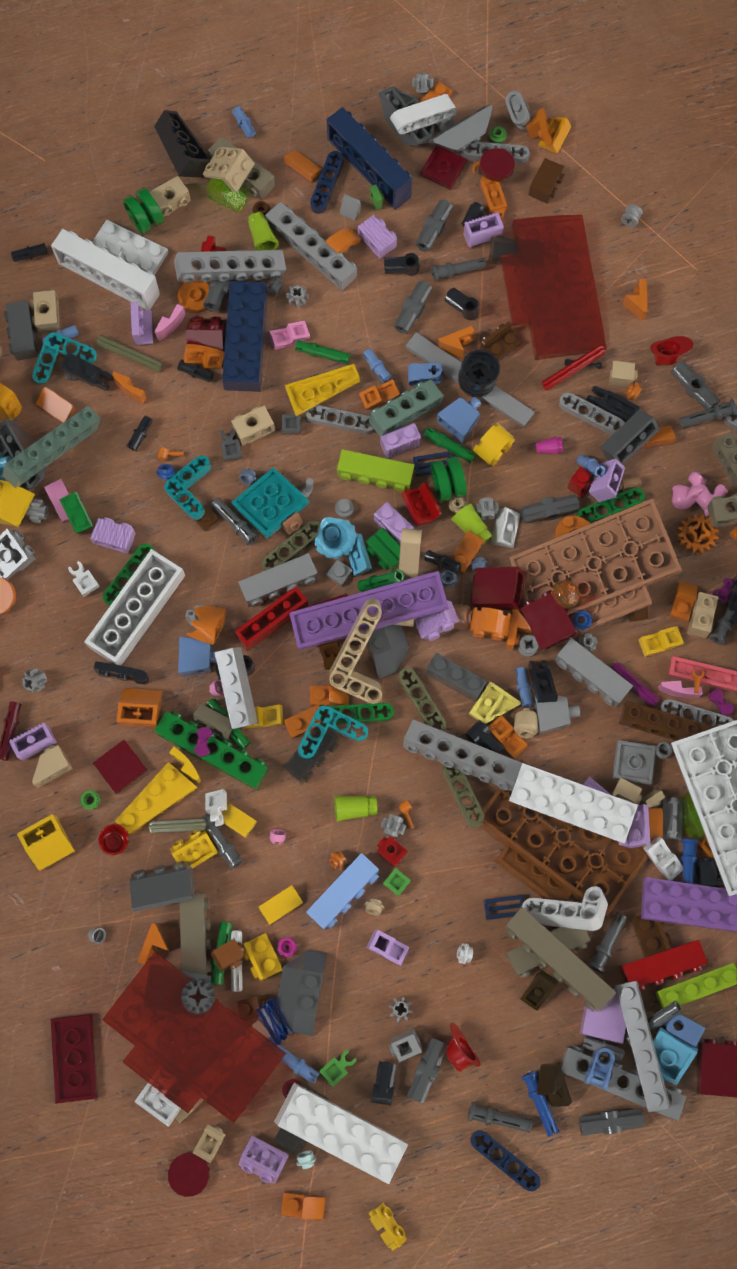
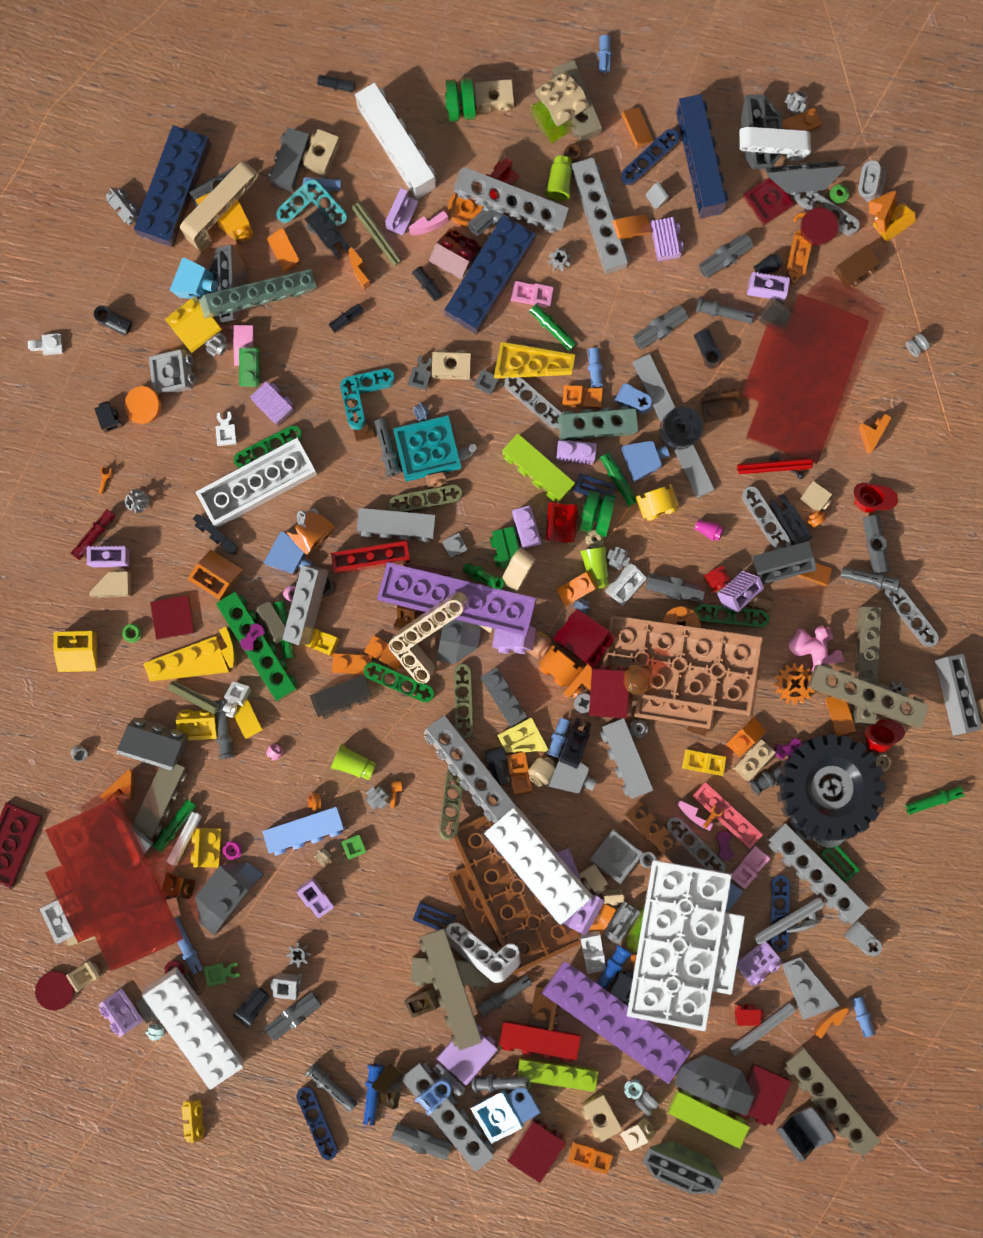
camera: 30 degrees right, 10 degrees up
(113, 839) = (133, 679): red hair -> none
(131, 247) = (429, 129): white plate -> none
(163, 453) = (357, 348): orange hand -> none
(165, 471) = (350, 367): blue plate -> none
(181, 145) = (531, 50): black wedge -> none
(205, 989) = (142, 853): dark grey gear -> none
(206, 355) = (446, 277): orange slope -> none
(228, 955) = (178, 832): dark orange brick -> none
(275, 286) = (544, 239): dark grey plate -> none
(276, 1019) = (190, 905): clear blue tile -> none
(280, 904) = (246, 812): yellow slope -> none
(303, 1206) = (134, 1067): orange slope -> none
(330, 723) = (370, 680): teal beam -> none
(335, 537) = (466, 513): medium azure hair -> none
(344, 508) = (491, 488): light grey plate -> none
(359, 557) = (479, 538): medium azure plate -> none
(376, 197) = (688, 198): bright green plate -> none
(392, 858) = (369, 823): red brick -> none
(399, 265) = (670, 279): black piece -> none
(442, 561) = (550, 586): black axle -> none
(451, 575) = (547, 598): sand blue plate -> none
(453, 342) = (676, 382): orange slope -> none
(459, 1050) = (329, 1015): red piece -> none
(464, 953) = (377, 938): white plate -> none
(588, 620) = (646, 711): blue plate -> none
(591, 465) = (734, 569): medium blue pin -> none
(638, 687) = (657, 788): magenta axle -> none
(643, 1046) = (480, 1097): light grey plate -> none

